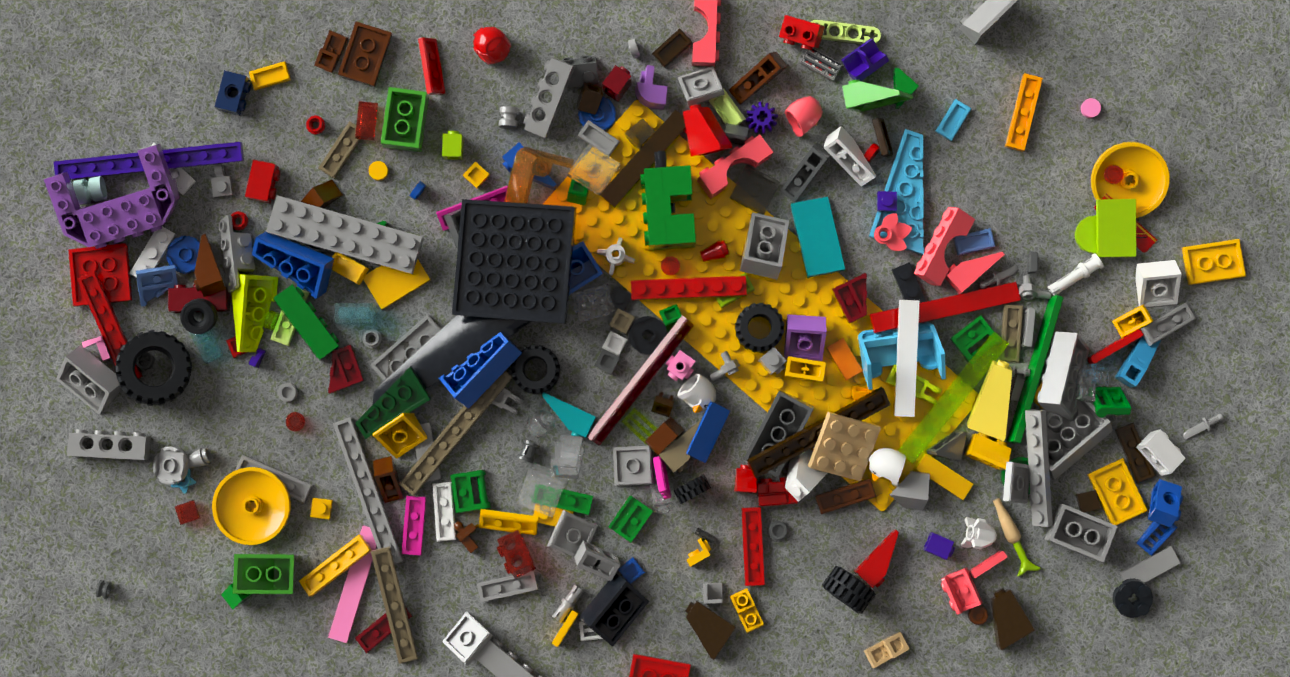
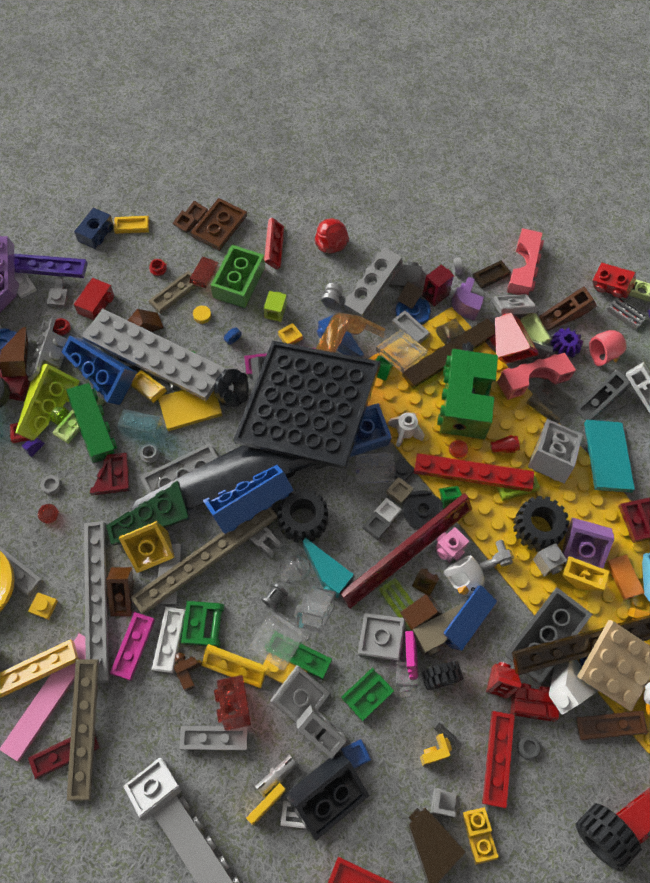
camera: 10 degrees right, 20 degrees down
(442, 252) = (240, 384): none -> black plate

